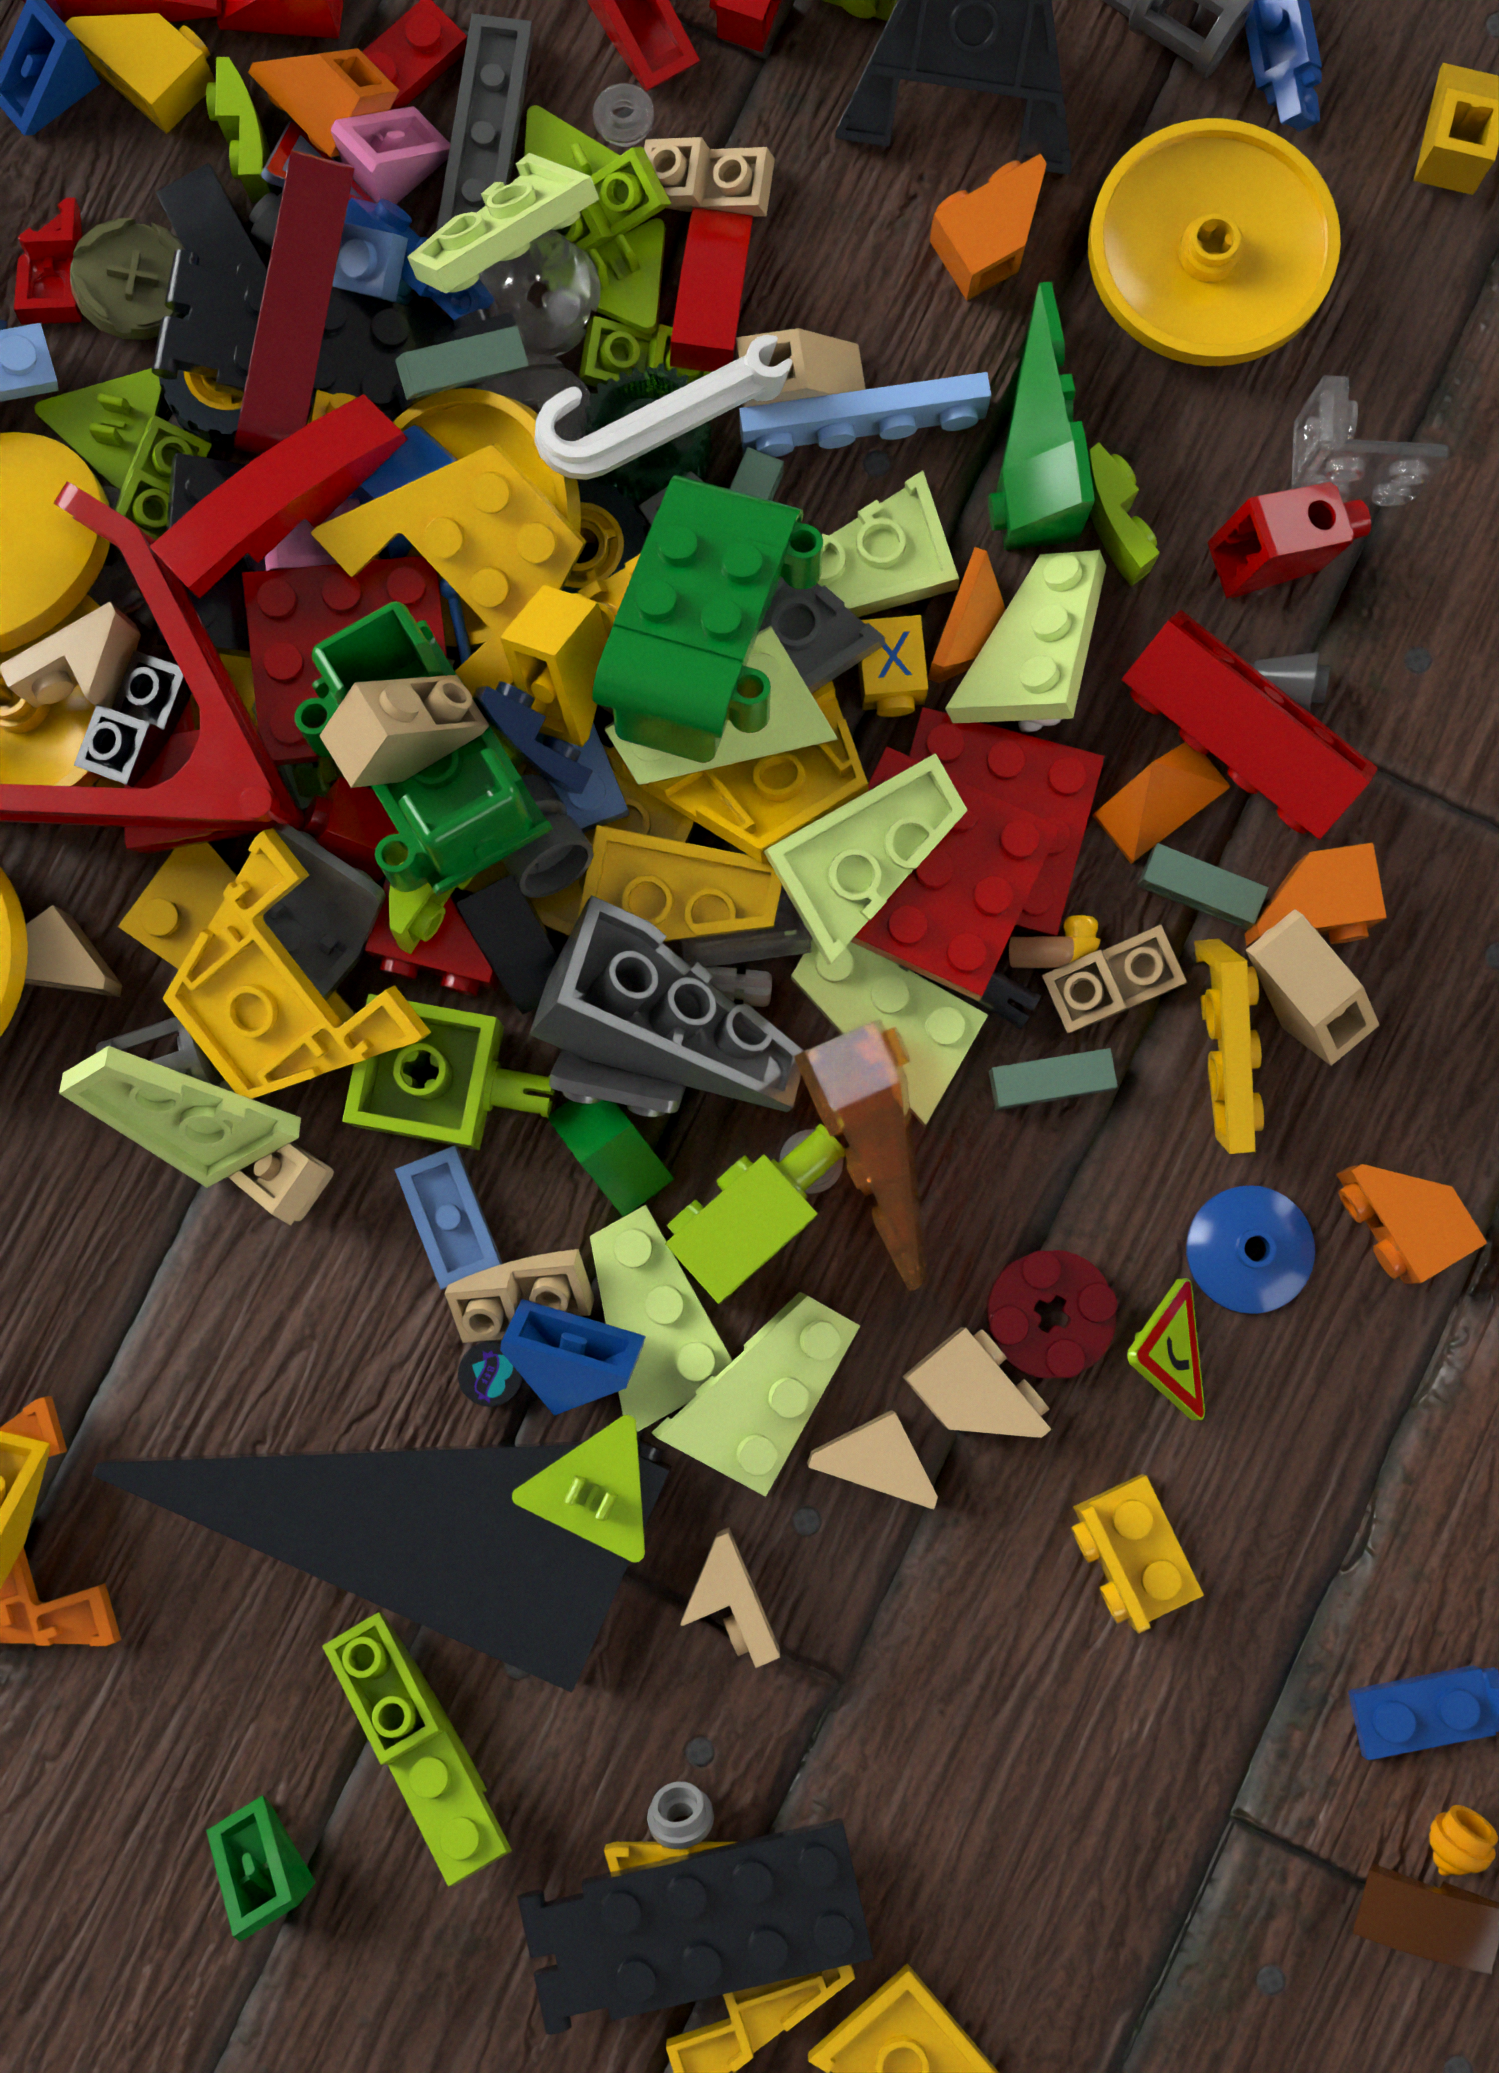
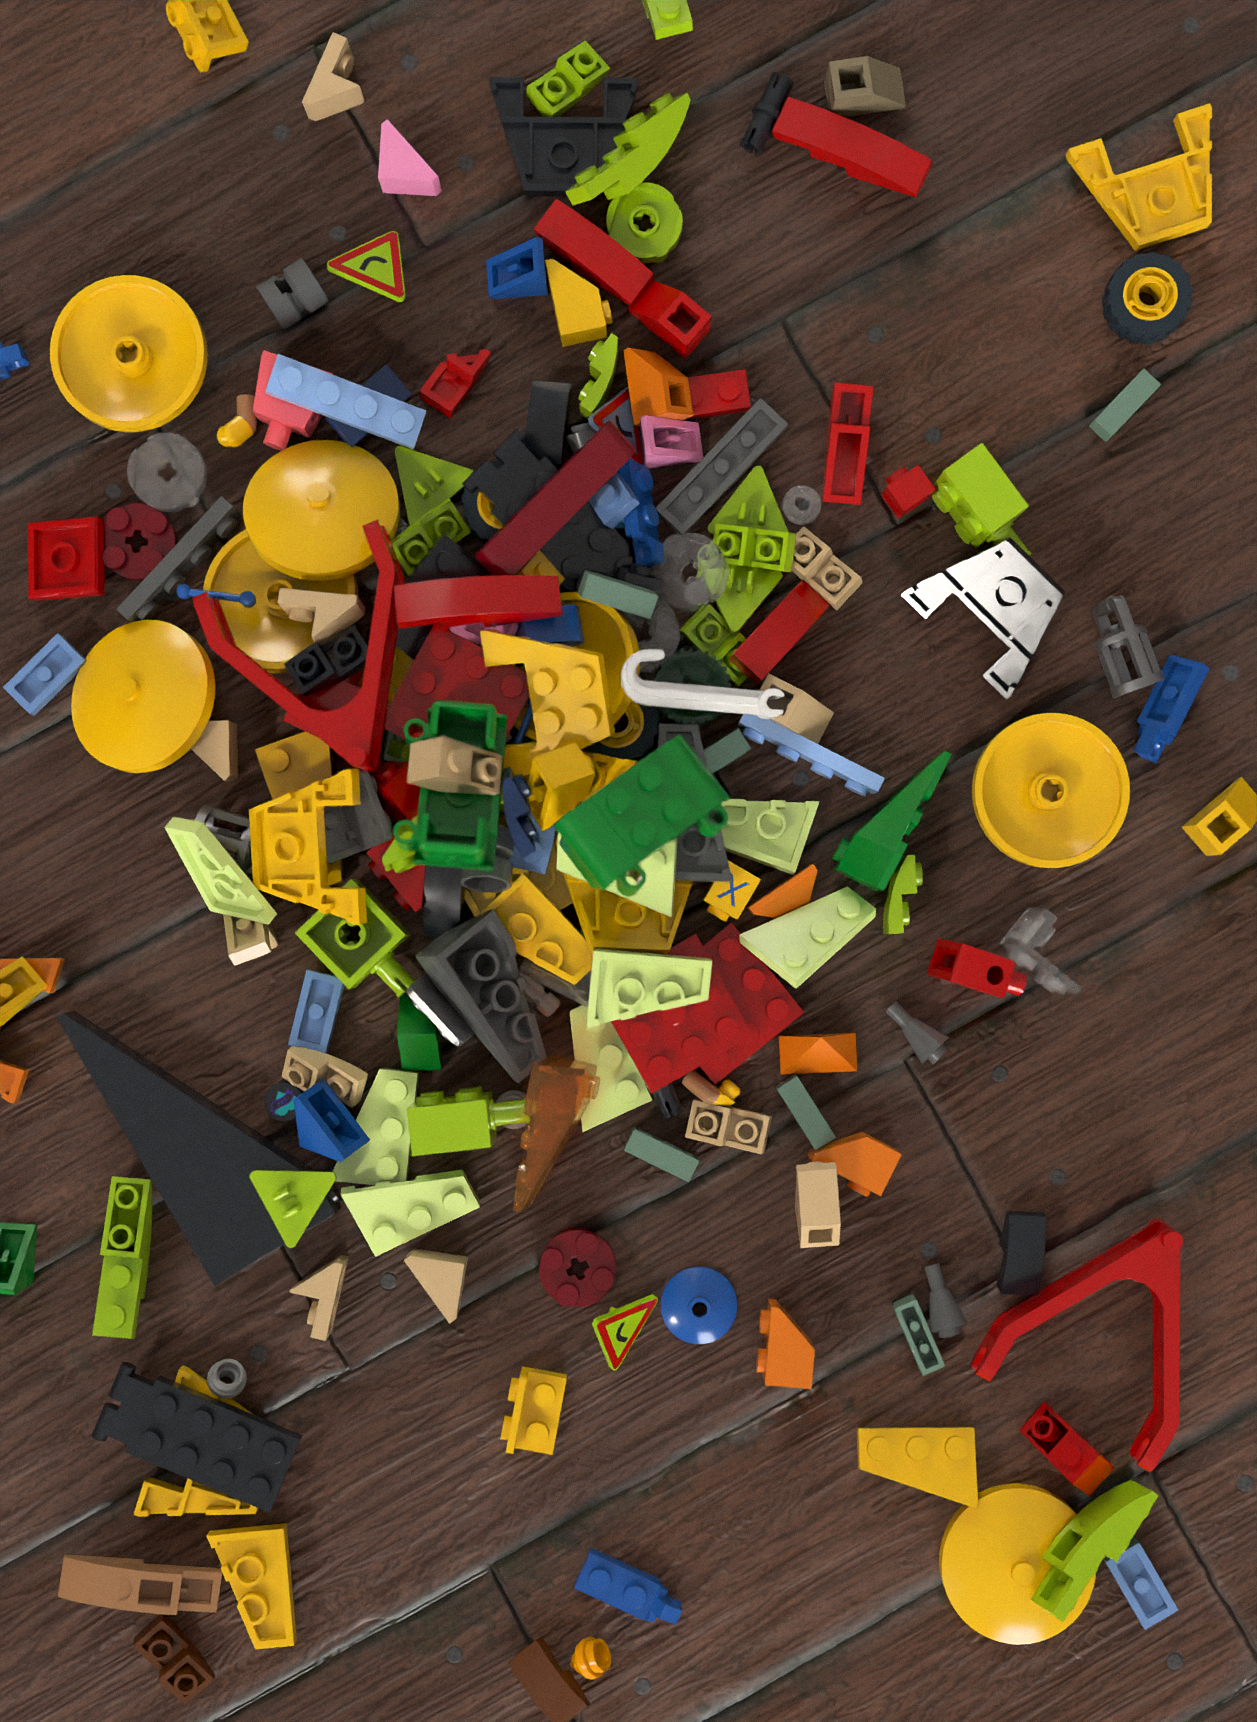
camera: 35 degrees right, 5 degrees up
(124, 277) = (488, 414): olive tile -> none
(513, 215) = (697, 530): yellowish green wing -> none
(972, 1393) = (509, 1279): tan slope -> none
(987, 230) = (943, 701): orange slope -> none
(1227, 1017) = (759, 1209): yellow wing -> none
(1248, 725) = (886, 1050): red brick -> none

